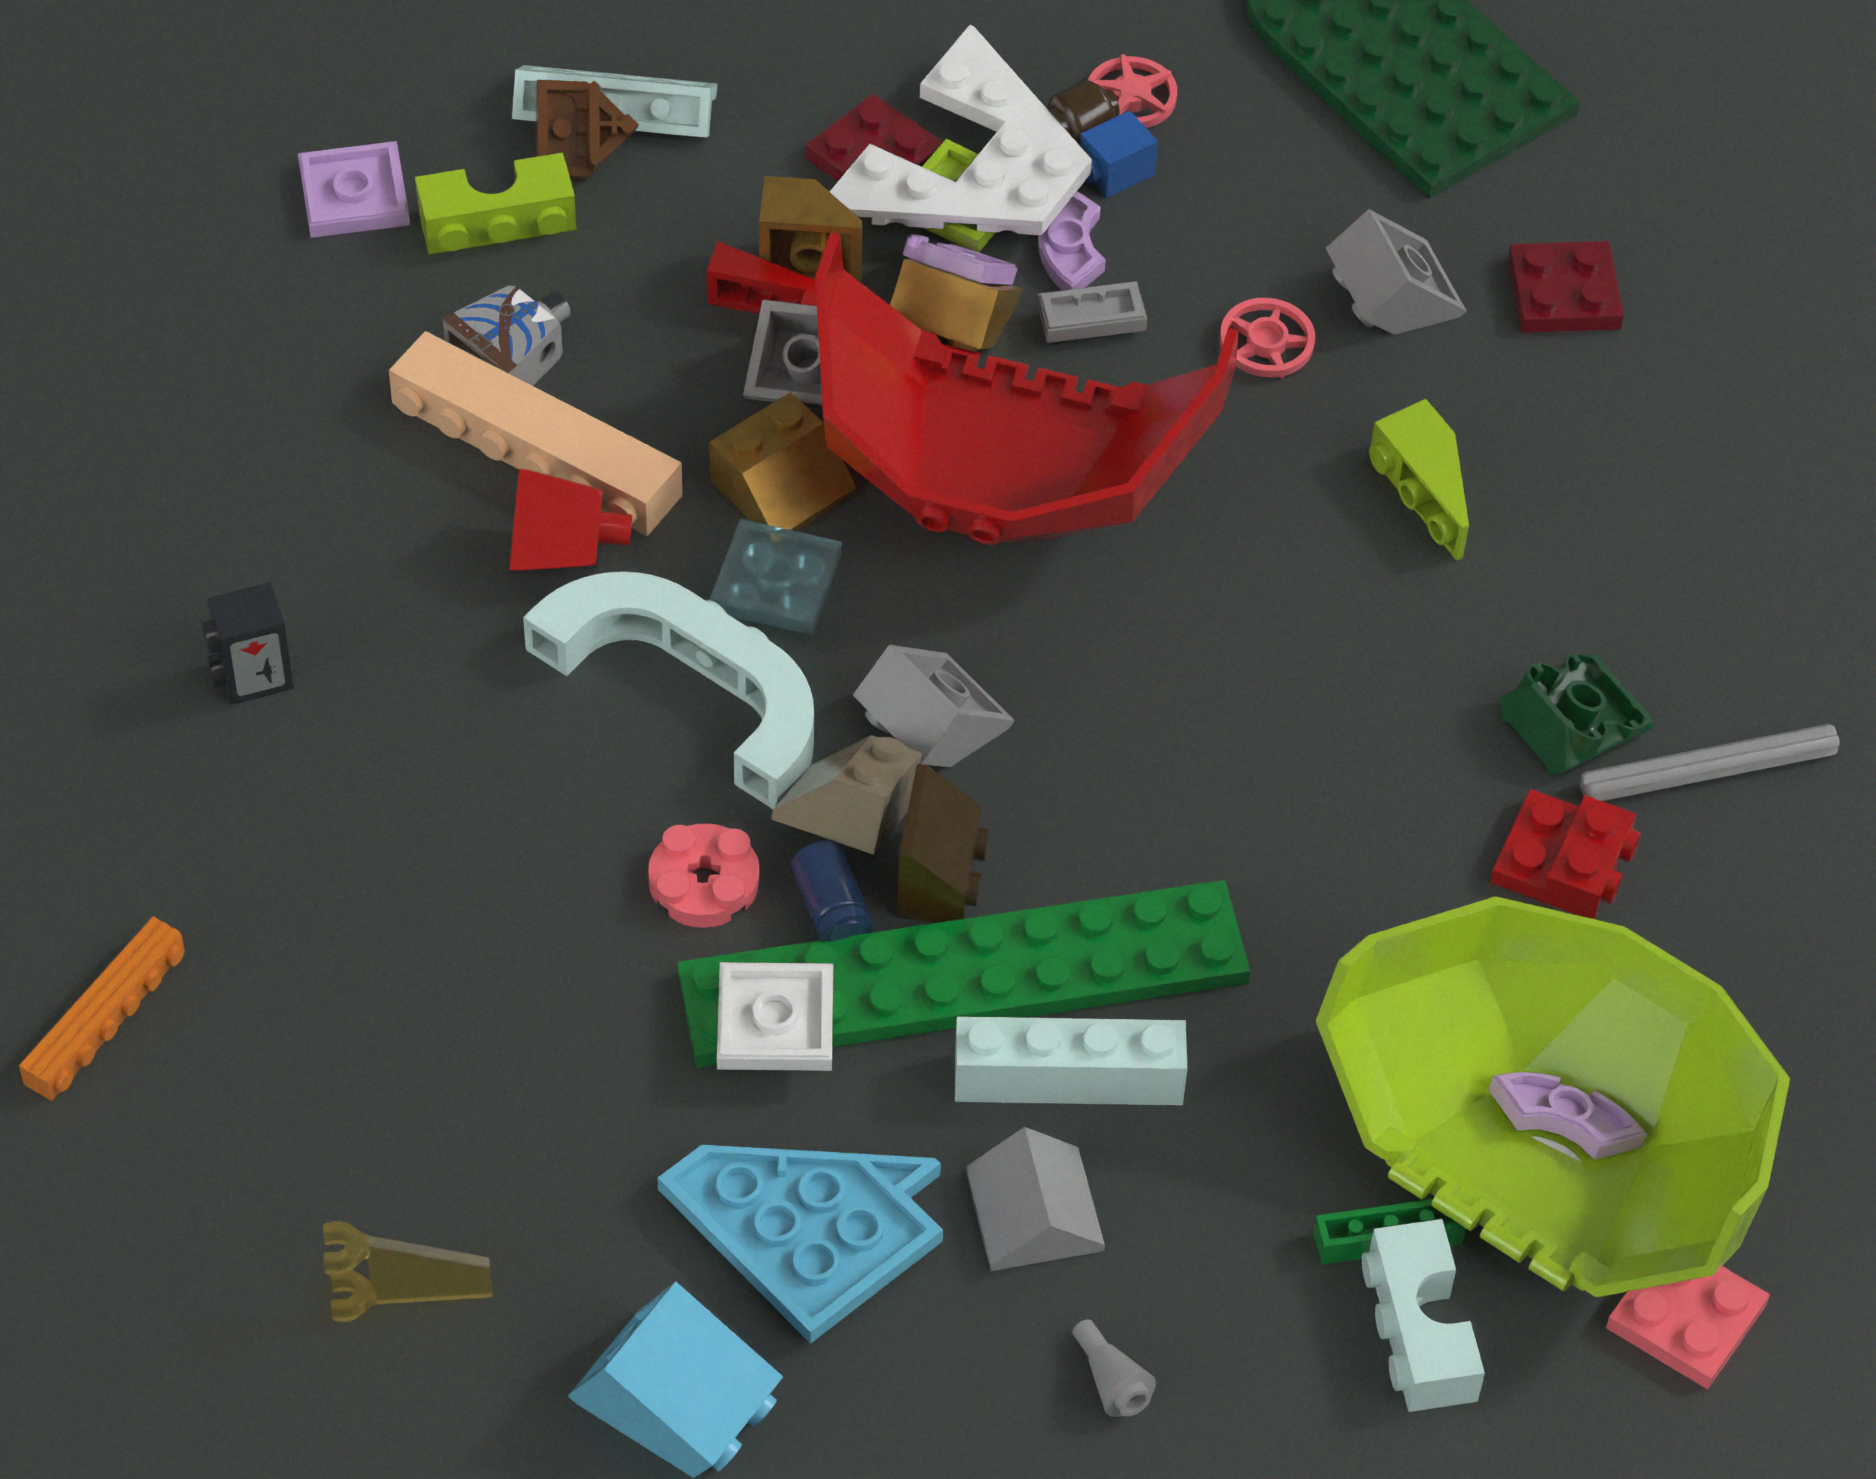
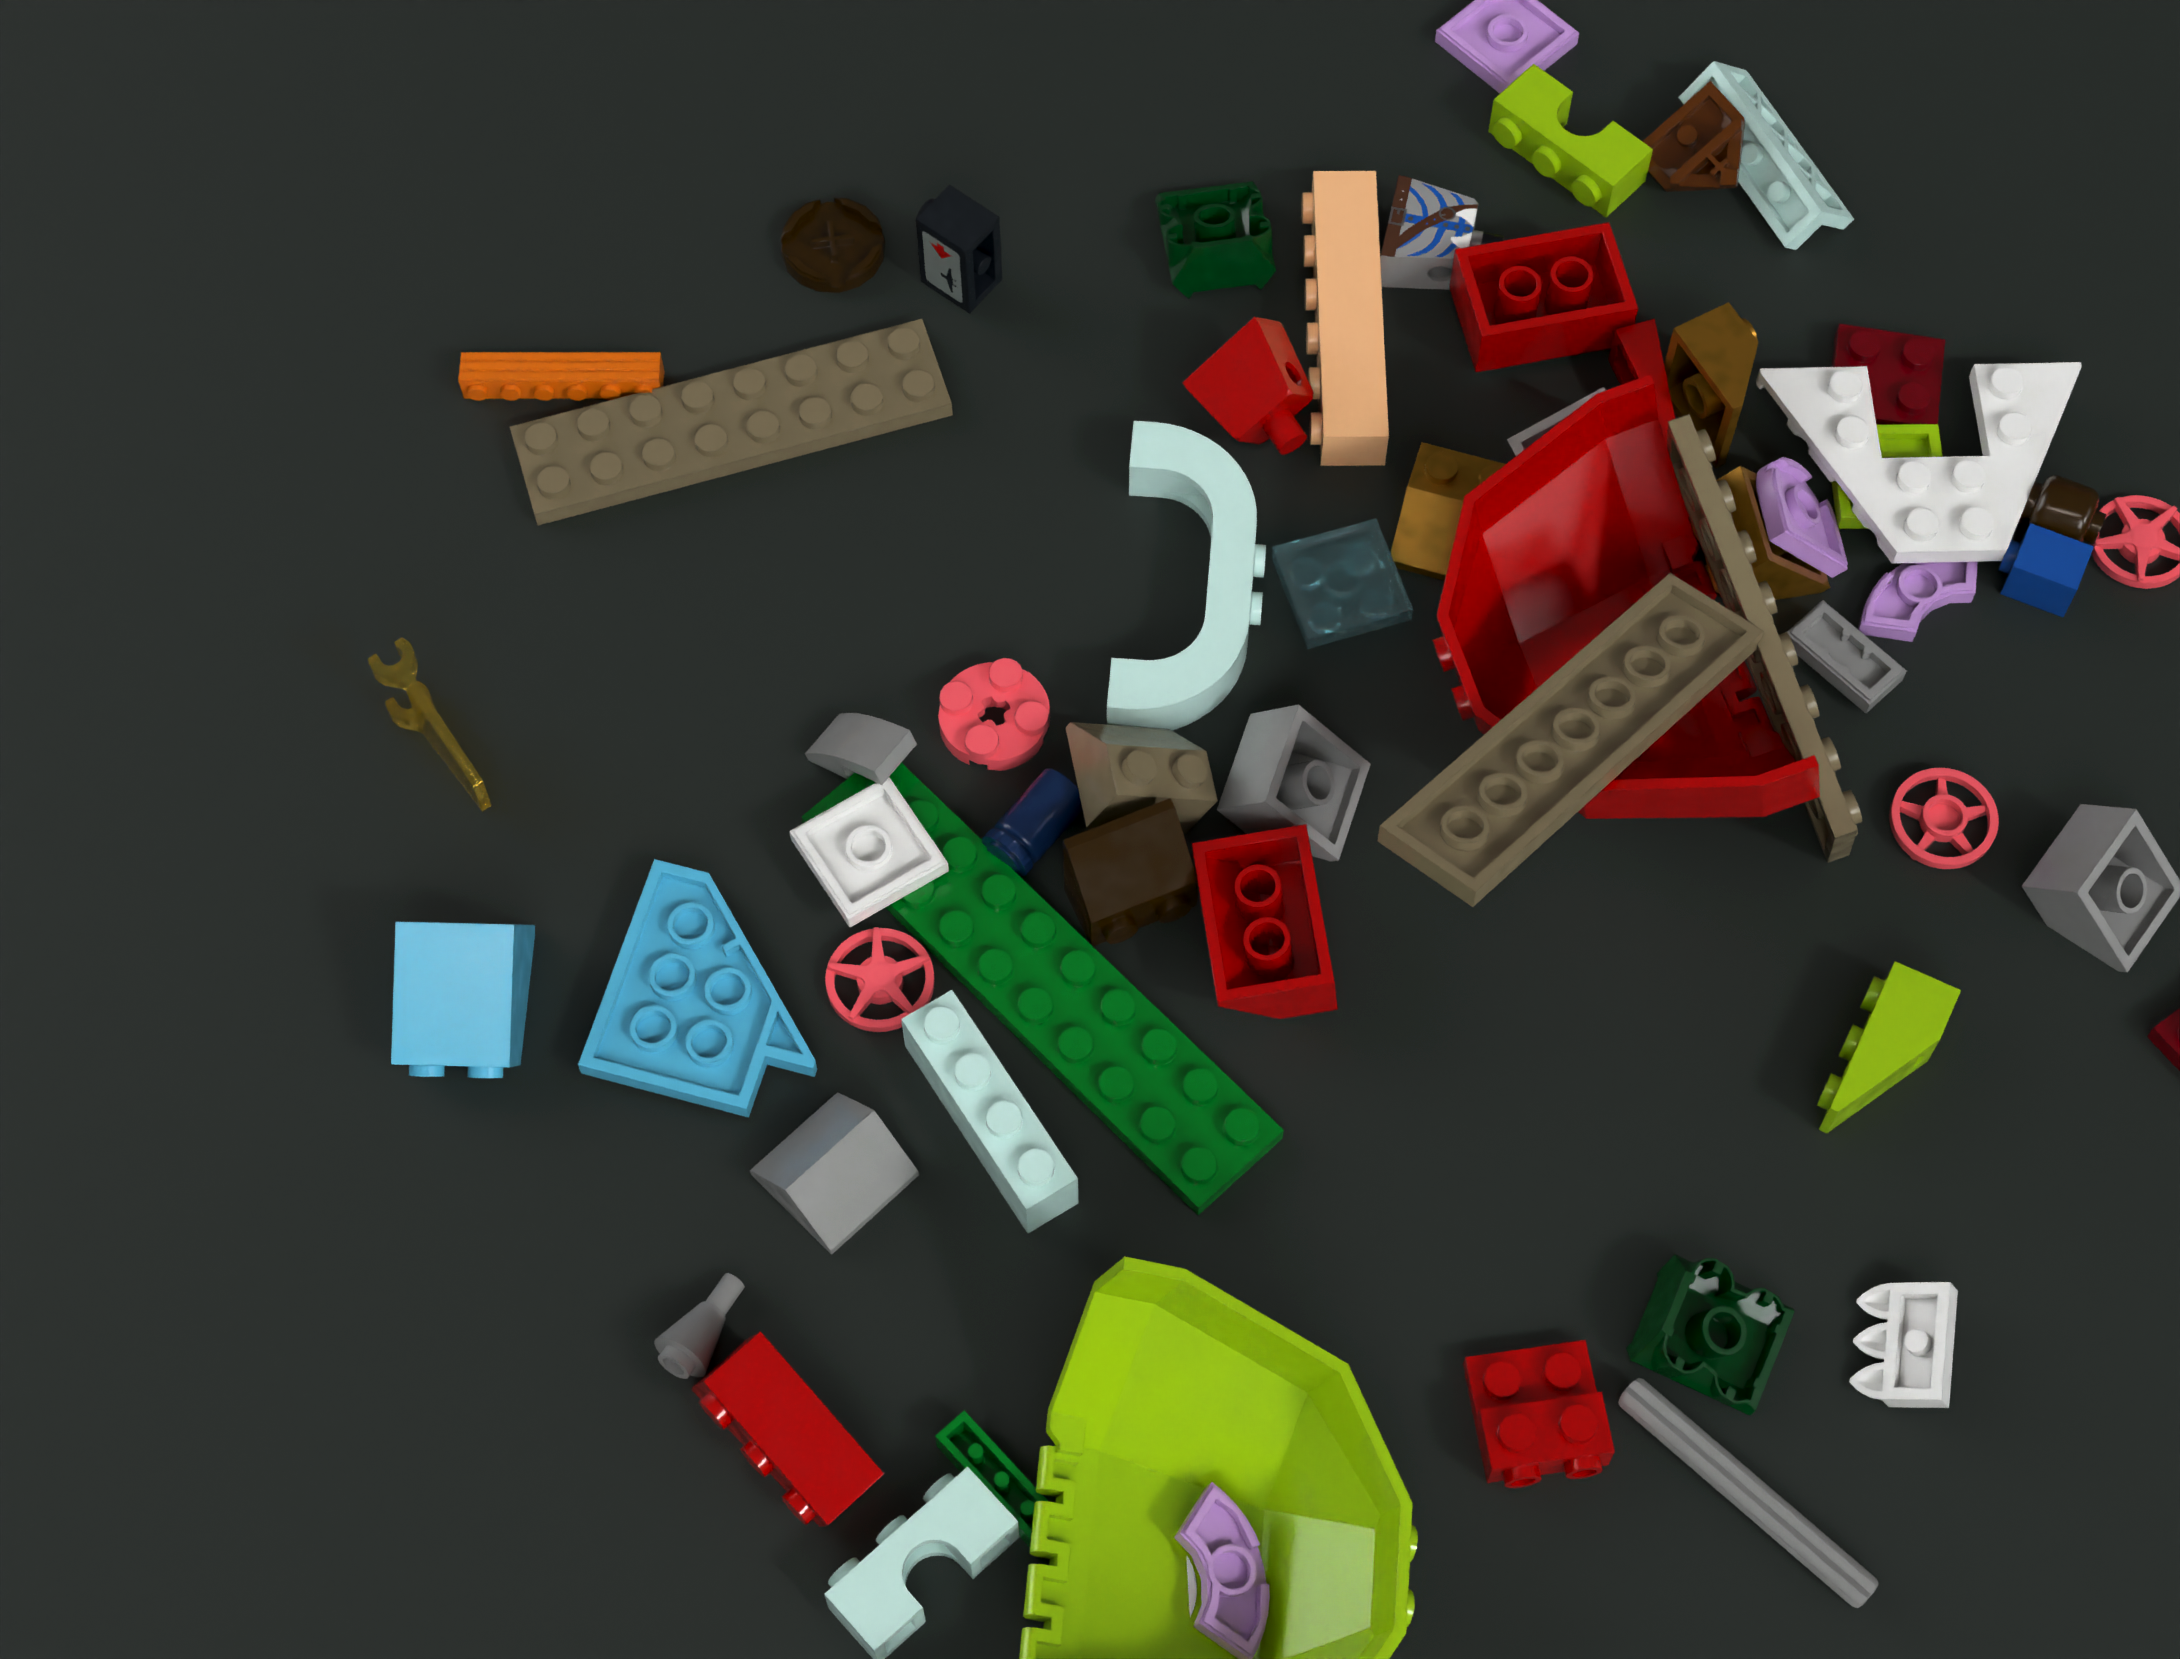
camera: 60 degrees right, 10 degrees up
(141, 744) = (832, 245): none -> dark brown tile
(255, 914) = (730, 421): none -> dark tan plate
(377, 475) = (1216, 237): none -> dark green slope
(632, 299) = (1541, 296): none -> red brick
(666, 970) = (862, 747): none -> light grey slope
(884, 1084) = (878, 978): none -> coral wheel
(1049, 326) = (1787, 703): none -> dark tan plate
(1053, 776) = (1265, 923): none -> red slope
(1092, 467) = (1568, 739): none -> dark tan plate
(1245, 1345) = (786, 1431): none -> red wedge
(1664, 597) = (1912, 1343): none -> white plate

